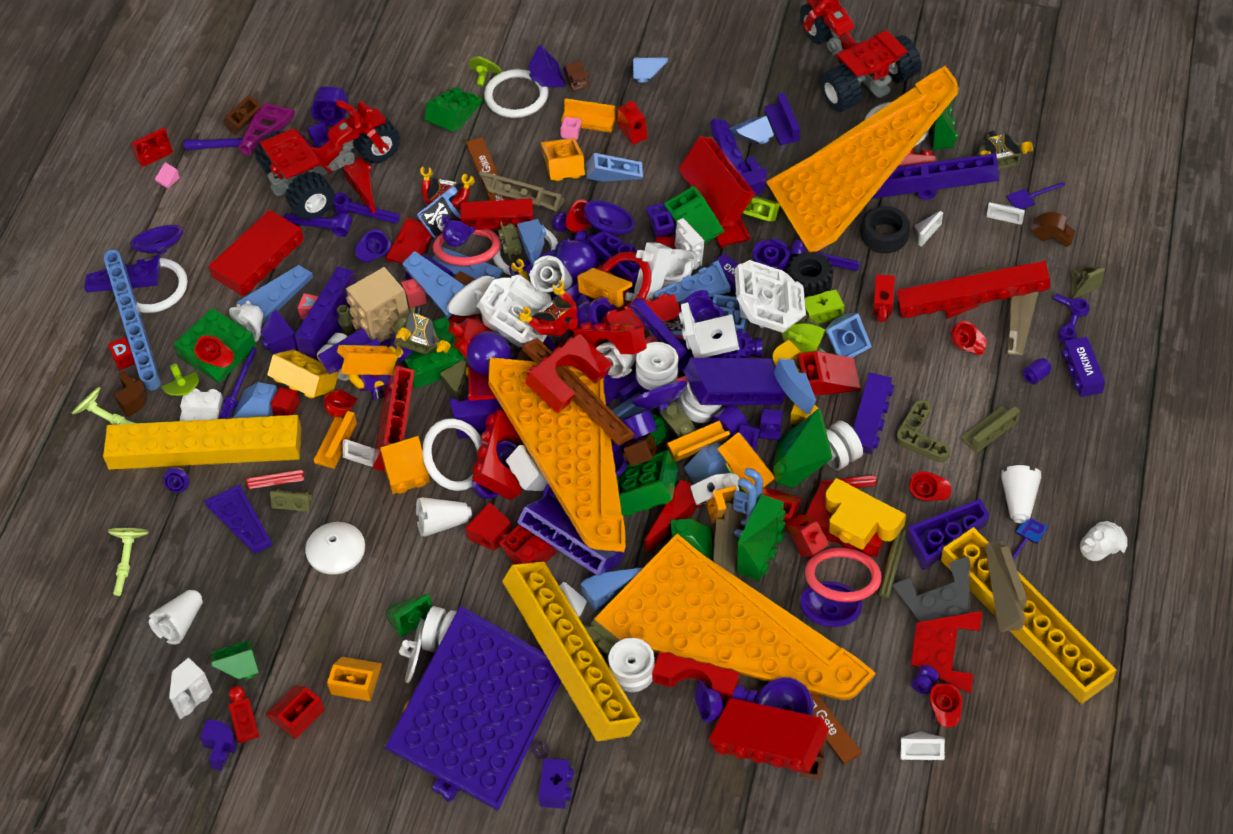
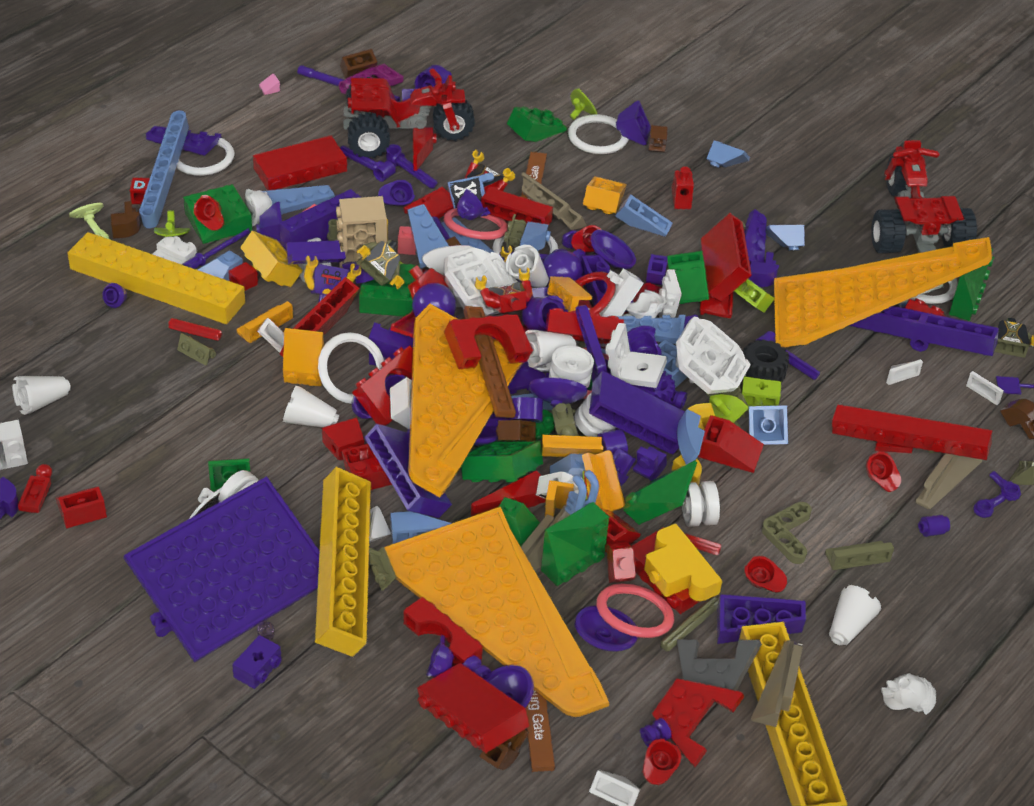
camera: 20 degrees right, 10 degrees down
(127, 536) = (44, 319): yellowish green dish -> none
(151, 147) = (271, 58): red slope -> none
(157, 239) = (227, 124): dark purple dish -> none
(236, 660) = (62, 447): slope -> none
(238, 515) = (145, 343): dark purple wing -> none
(338, 403) = (285, 292): red piece -> none
(338, 555) = (206, 400): white dish -> none
(354, 678) = (146, 502): light orange slope -> none
(366, 359) = (323, 262): light orange panel -> none
(454, 379) = (395, 312): olive slope -> none
(570, 128) = (627, 175): bright pink slope -> none
(593, 115) = (649, 171): light orange panel -> none
(627, 338) = (553, 330): red arch -> none
(632, 664) = (389, 596): white wheel -> none
(772, 253) = (739, 330): dark purple brick -> none
(783, 121) = (820, 240): dark purple panel -> none
(872, 410) = (751, 491): dark purple wedge -> none
(883, 297) = (818, 411): red torso -> none
(889, 216) = (859, 367): black tyre -> none
(1030, 530) = (843, 654): piece -> none
(1083, 367) = (982, 540): dark purple brick -> none

